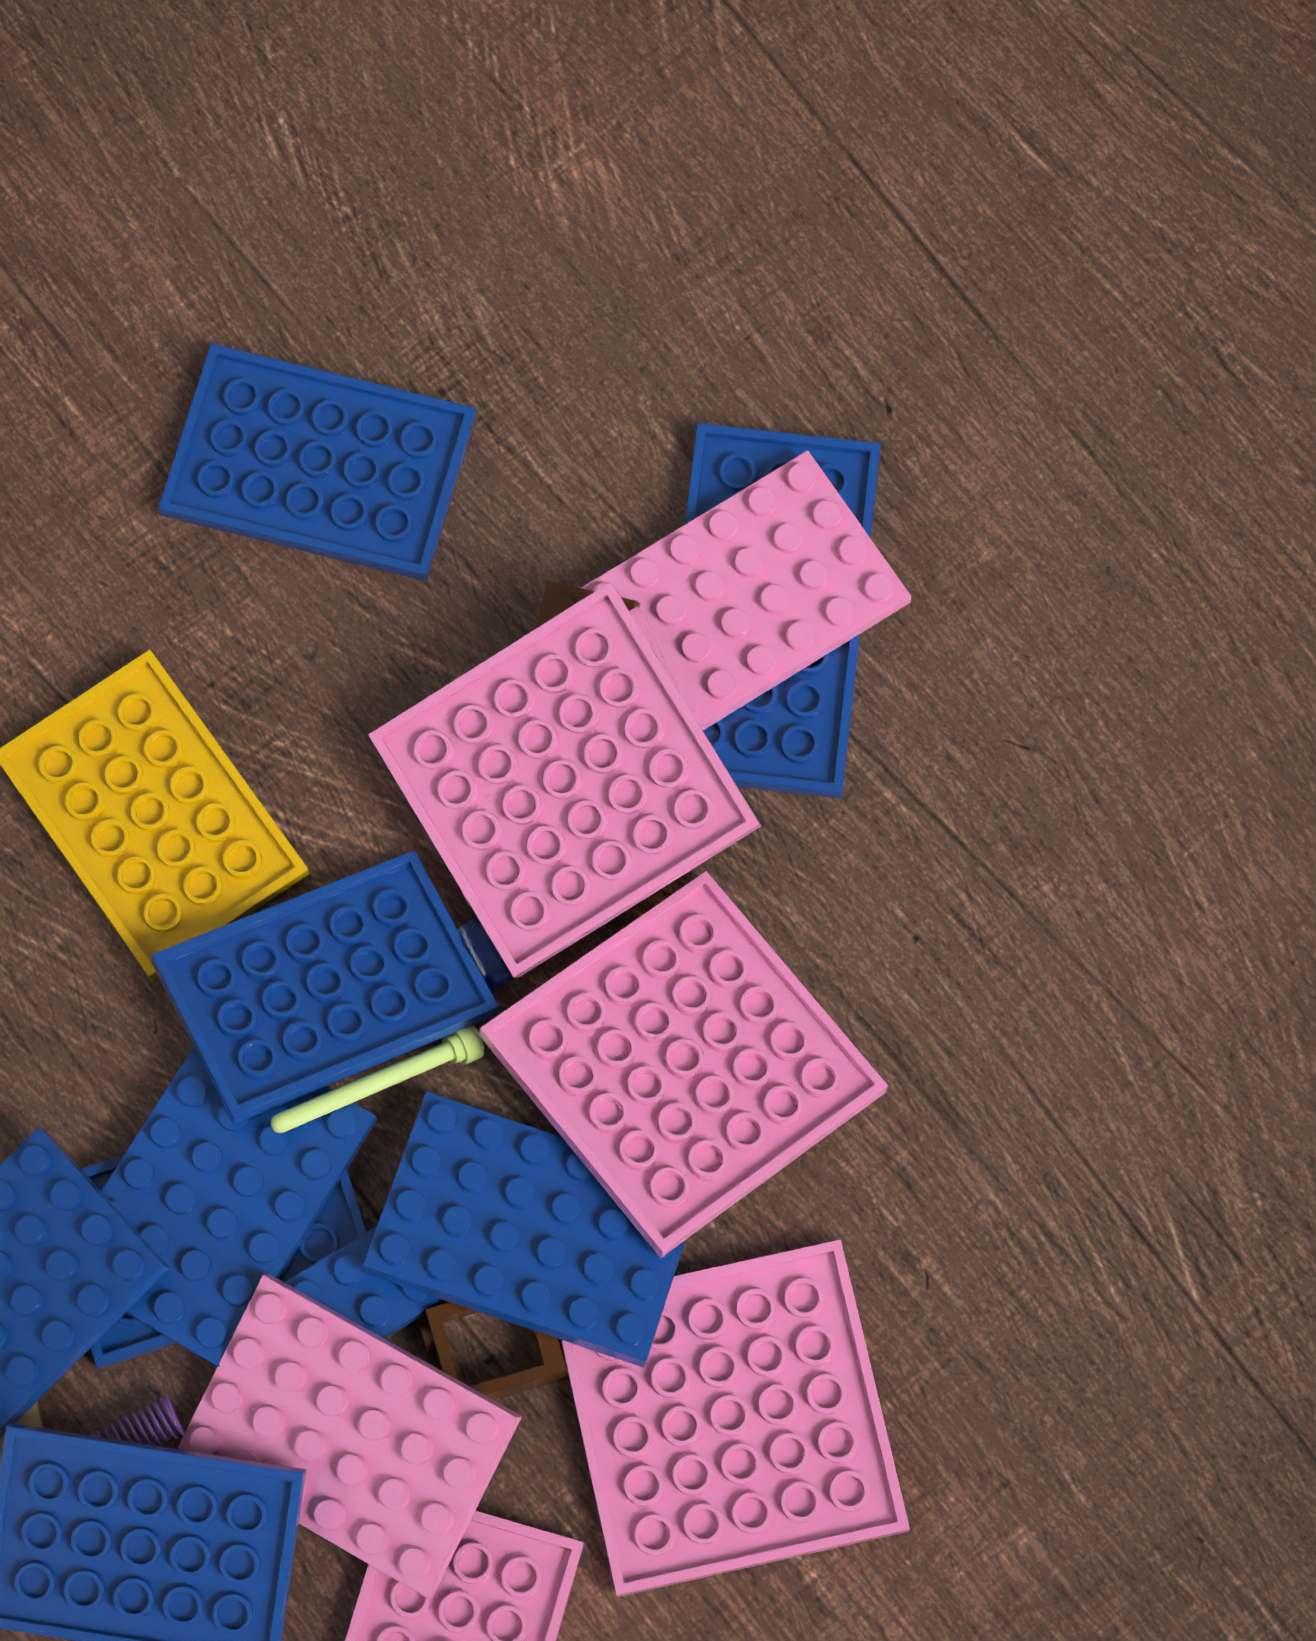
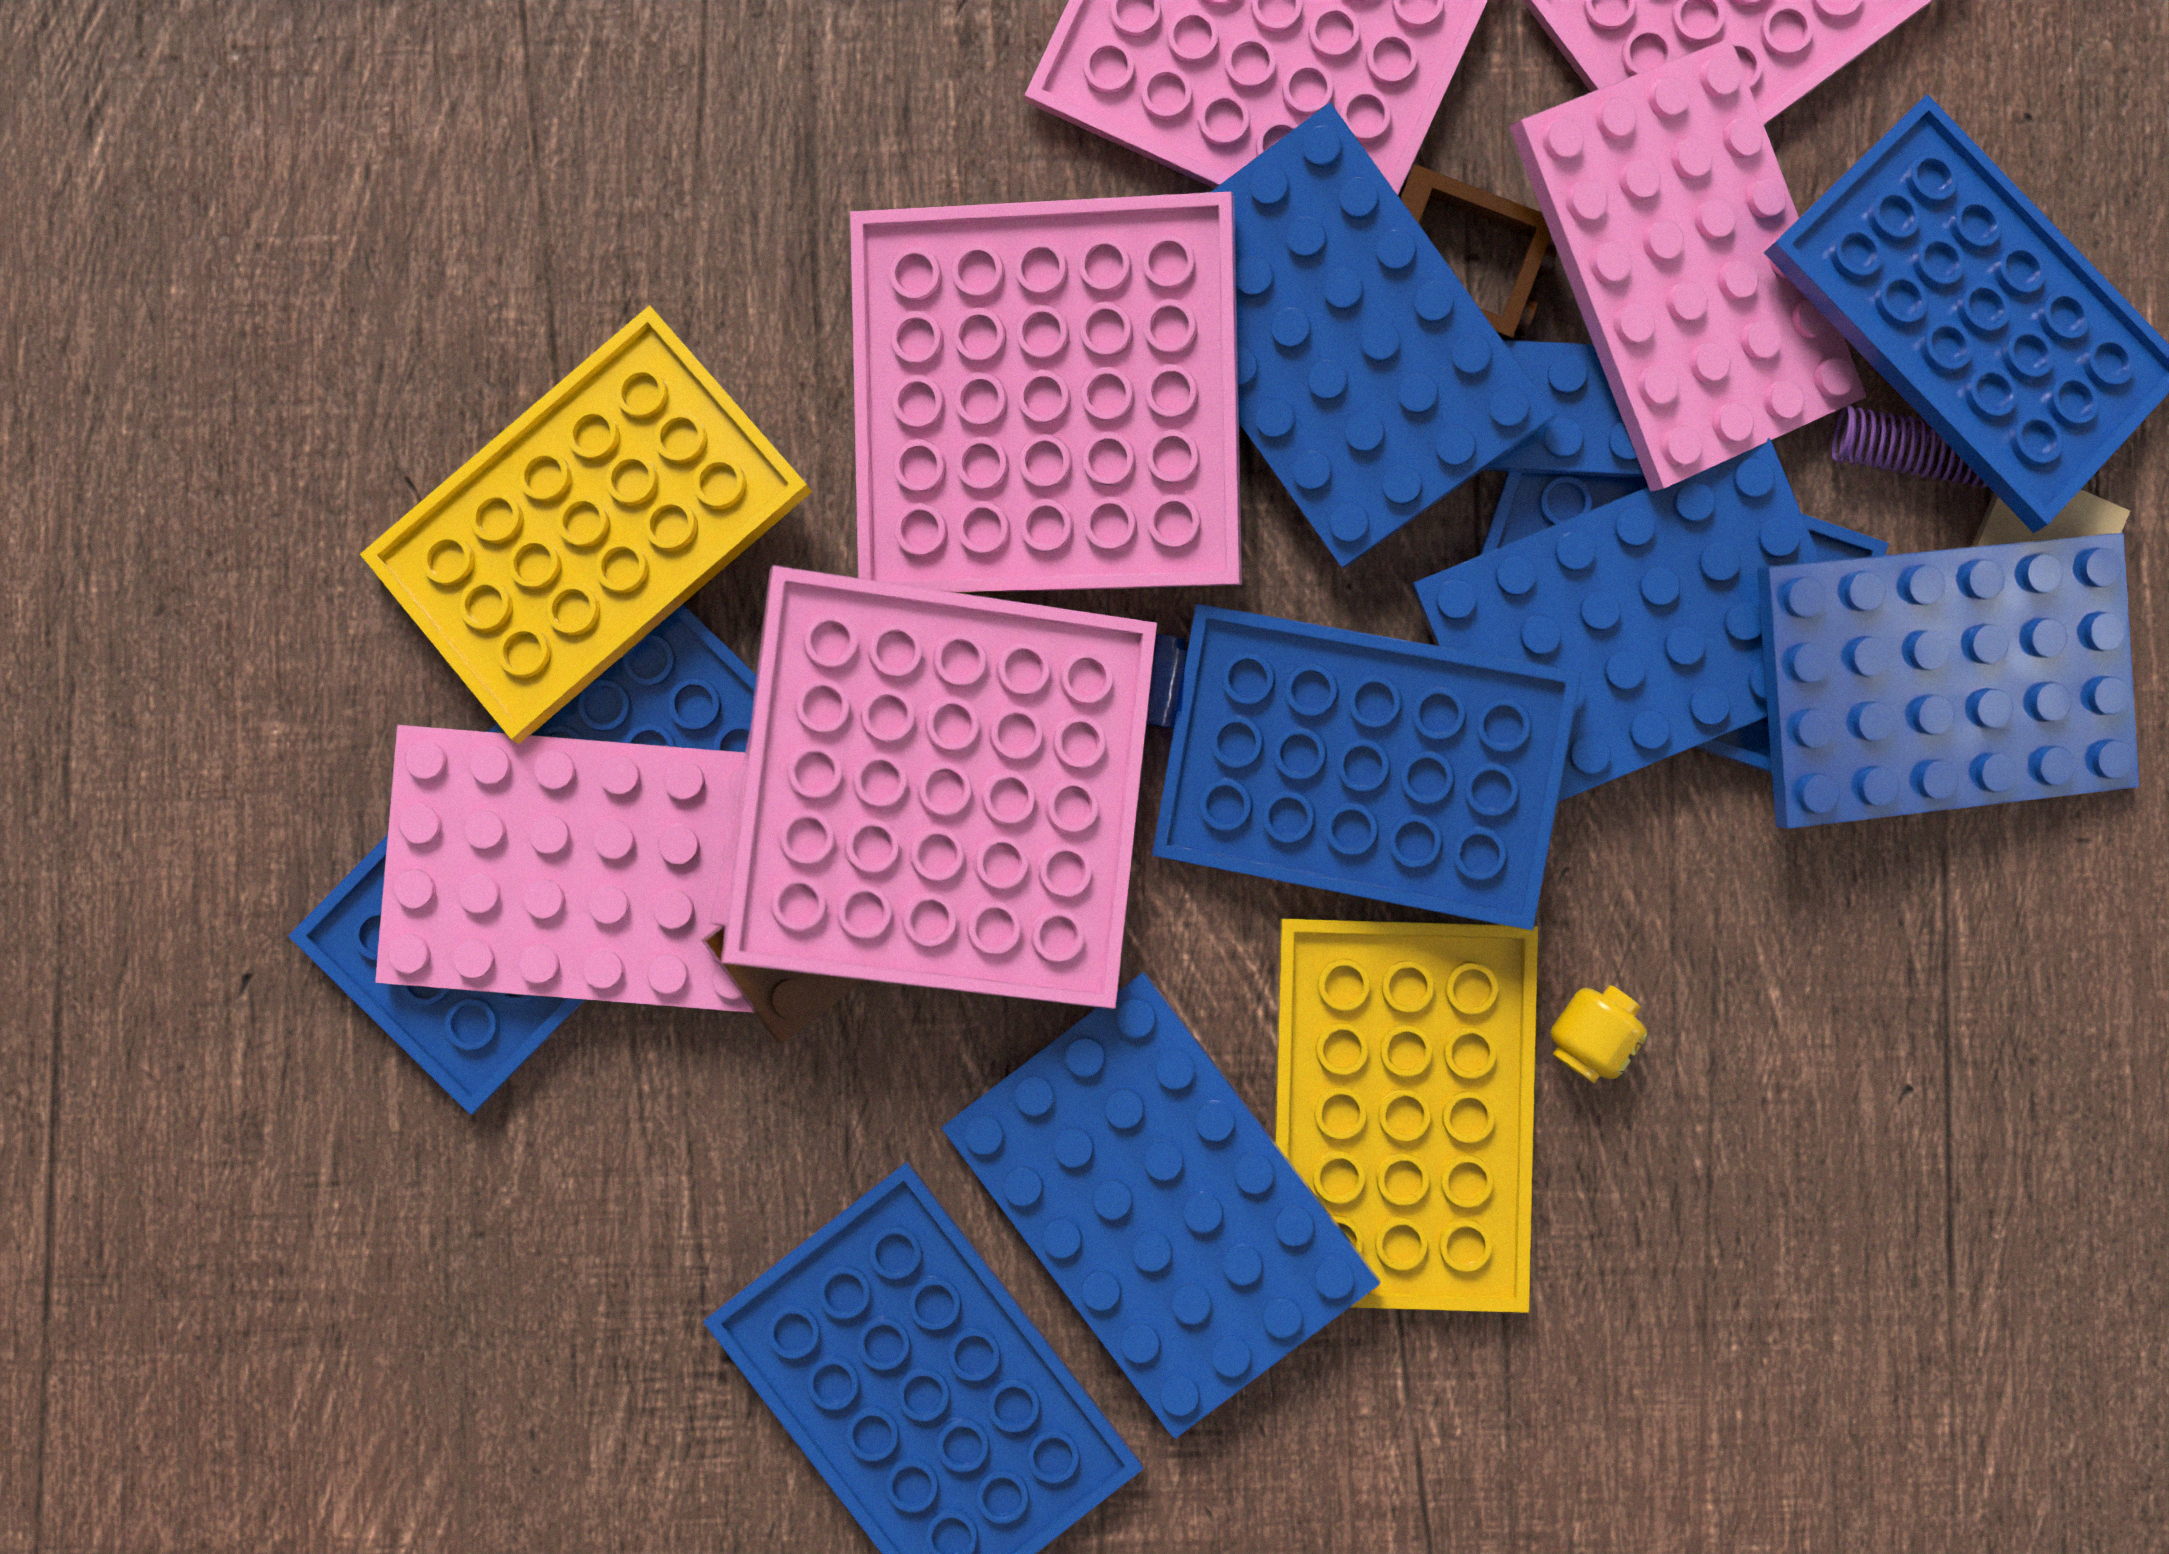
camera: 145 degrees left, 15 degrees up
(66, 940) = (1598, 1033): none -> yellow head
(258, 658) = (1160, 1205): none -> blue plate
(459, 1047) = (1263, 597): yellowish green piece -> none
(897, 791) = (585, 524): none -> yellow plate

